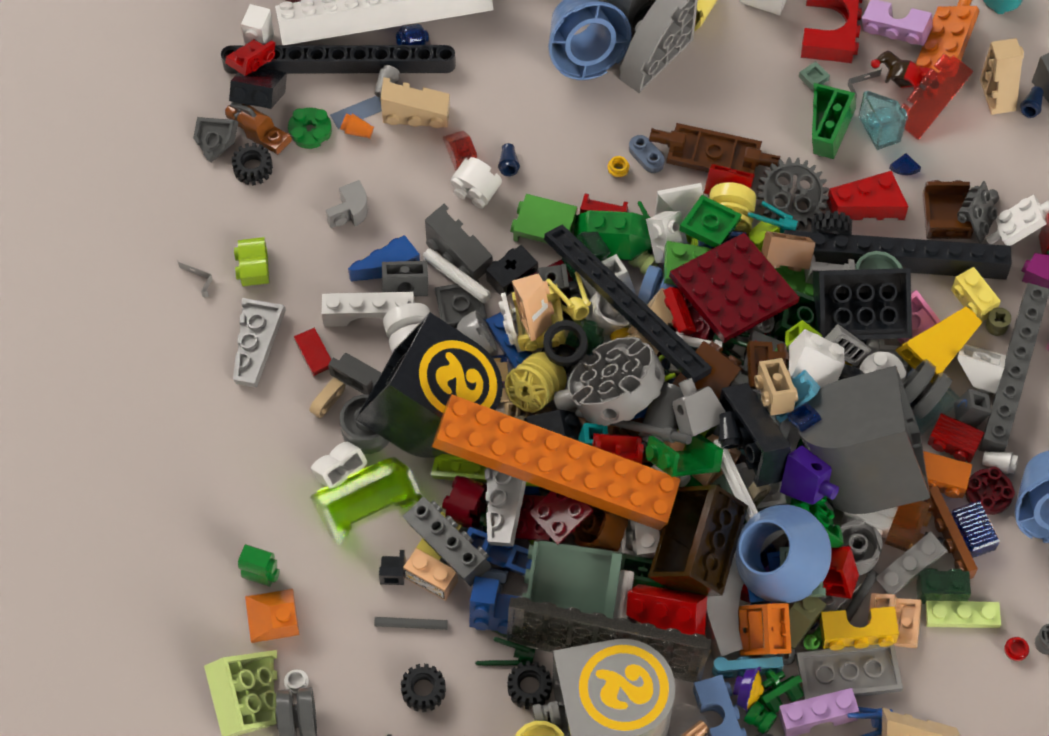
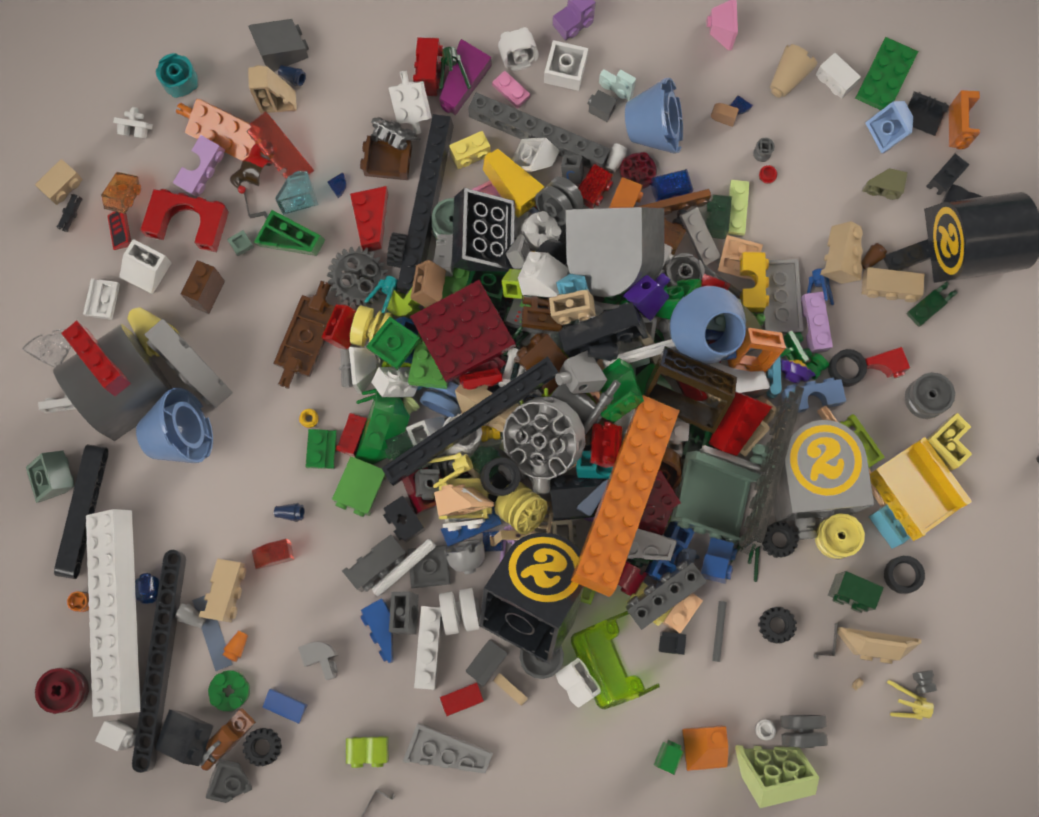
camera: 85 degrees left, 15 degrees up
(251, 56) = (153, 743): red bracket -> none
(297, 181) = (284, 705): none -> blue slope
(475, 182) = (312, 542): white brick -> none
(584, 180) = (321, 449): none -> green plate
(645, 152) = (298, 394): sand blue plate -> none
(752, 41) = (202, 287): none -> reddish brown brick
(804, 417) = (601, 289): clear blue tile -> none
(995, 327) = (495, 142): olive wheel -> none

